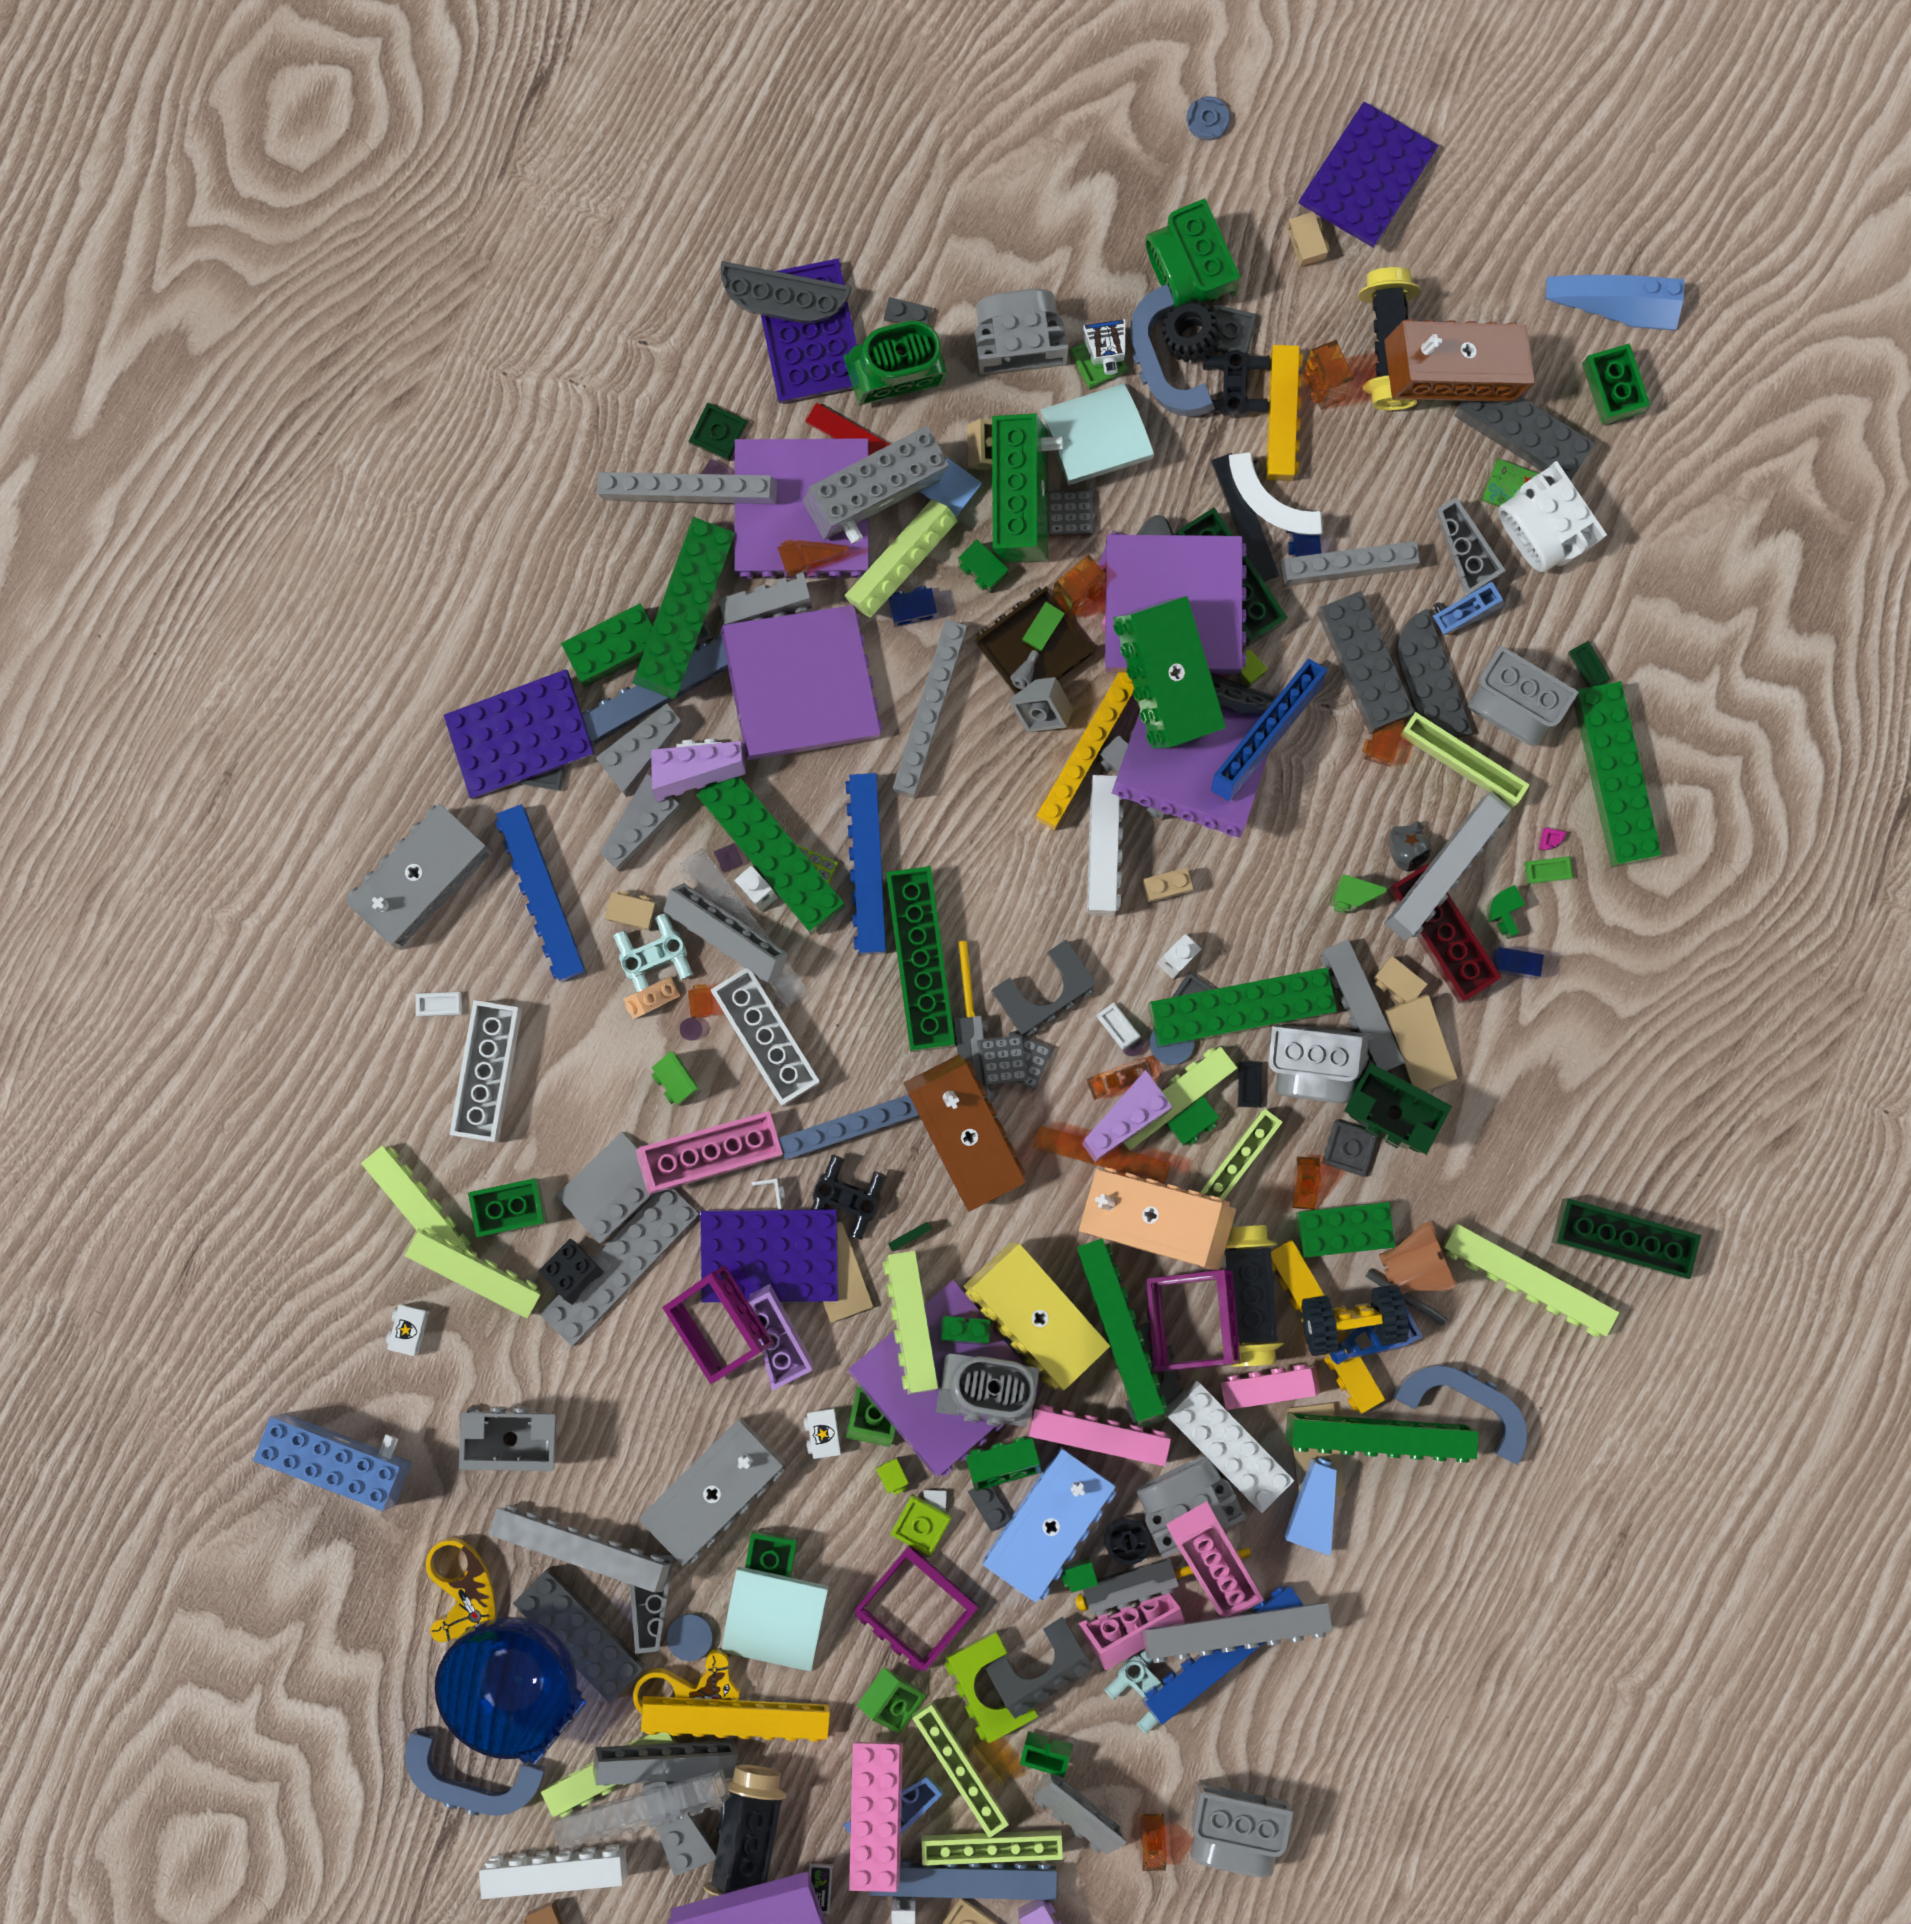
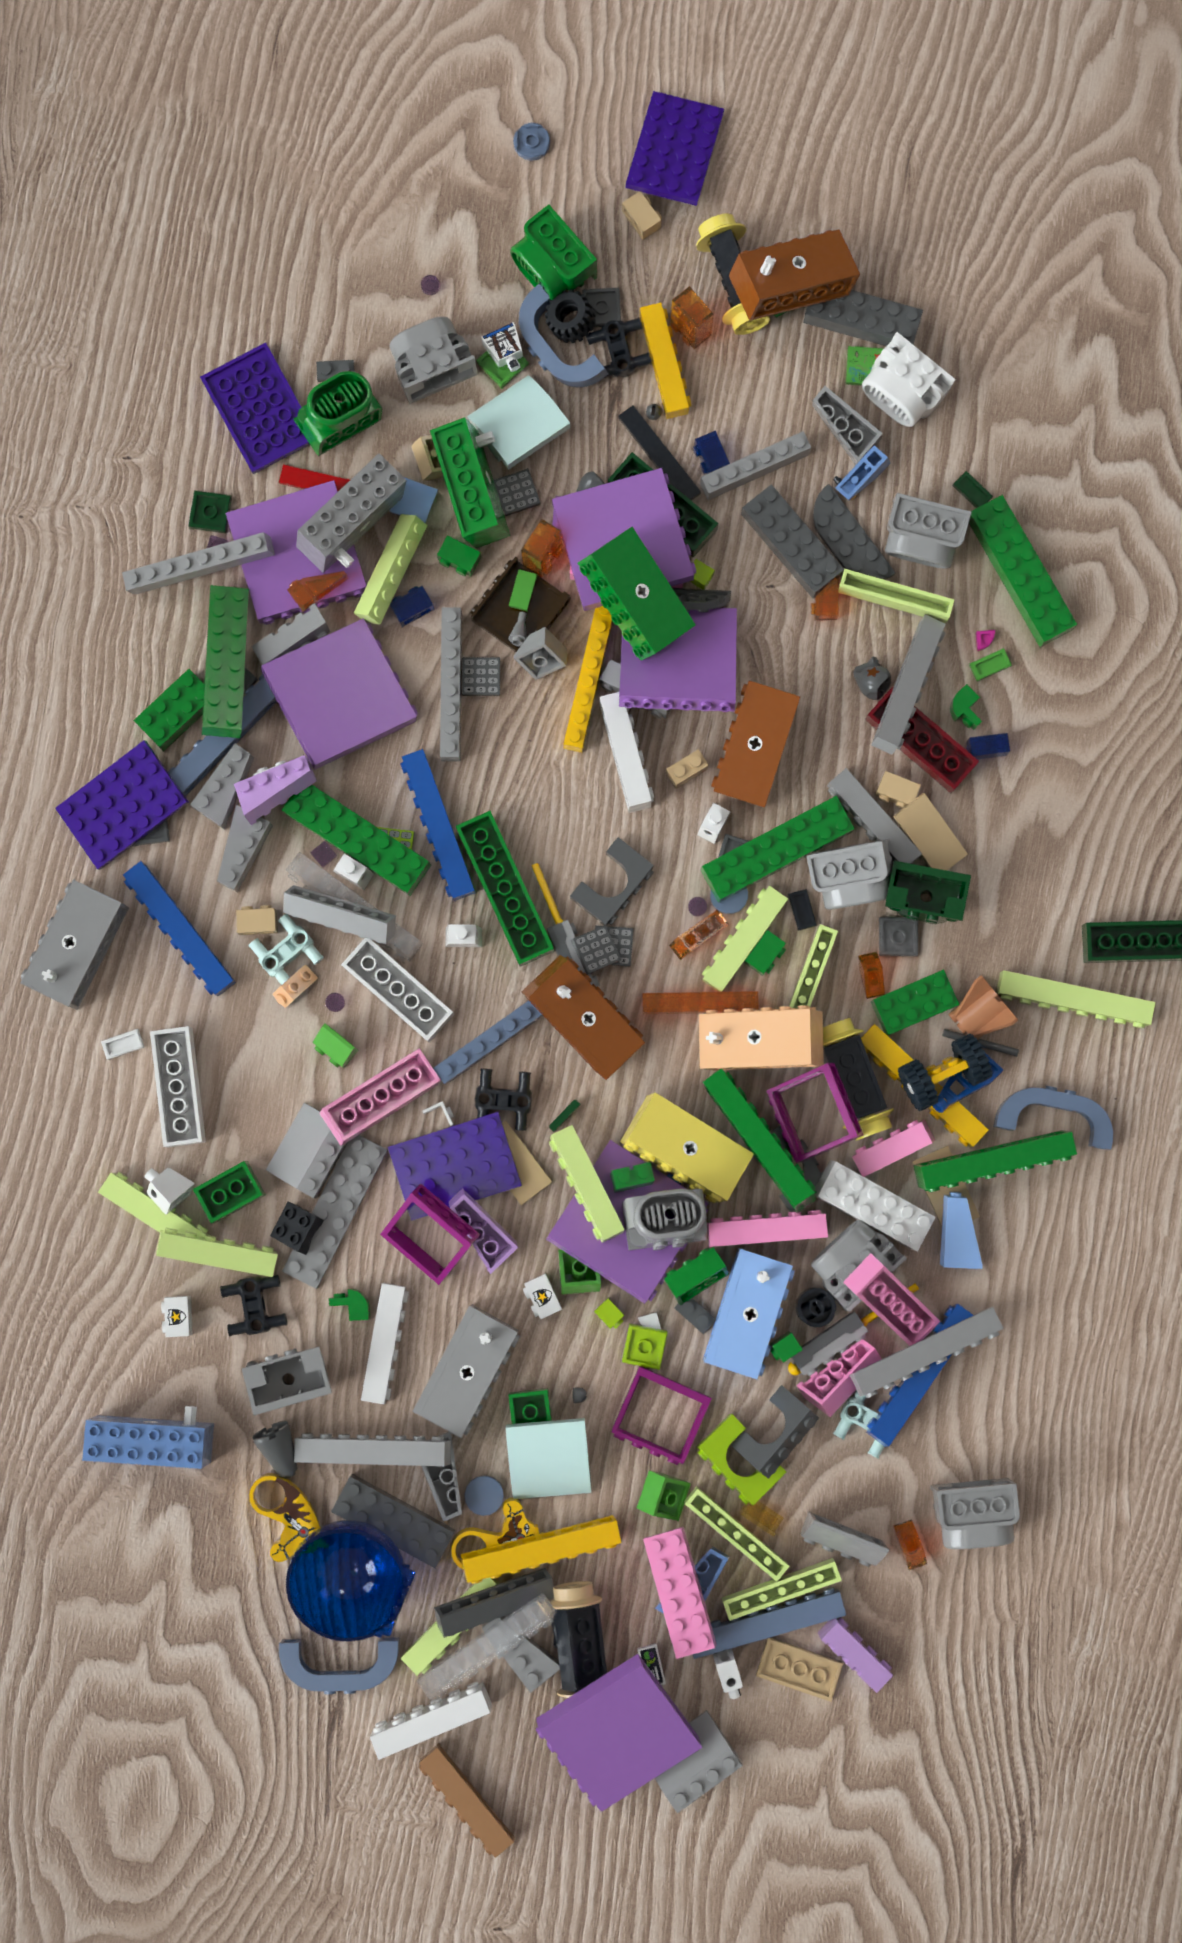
camera: 15 degrees left, 0 degrees up
(440, 1183) = (168, 1188): none -> white torso
(474, 1512) = (277, 1448): none -> dark grey cone
(496, 1343) = (253, 1305): none -> black piece
(613, 1376) = (357, 1304): none -> green brick
(628, 1432) = (383, 1343): none -> white brick
(701, 1001) = (336, 977): clear orange brick -> none
(782, 294) = (229, 384): dark grey plate -> none
(830, 1557) = (578, 1395): none -> dark grey hinge
(857, 998) = (463, 936): none -> white torso
(966, 710) = (480, 676): none -> tile
(1043, 247) = (430, 285): none -> clear purple tile
(1046, 1755) = (802, 1501): green piece -> none
(1118, 1026) = (682, 895): white tile -> none
(1130, 1115) = (714, 961): lavender wedge -> none
(1238, 912) = (763, 716): none -> dark orange piece
(1265, 505) = (673, 438): white tile -> none
(1268, 730) = (730, 618): blue brick -> none
(1354, 893) = (840, 729): bright green slope -> none
(1616, 384) = (925, 258): green brick -> none
(1624, 298) = (912, 187): medium blue wedge -> none

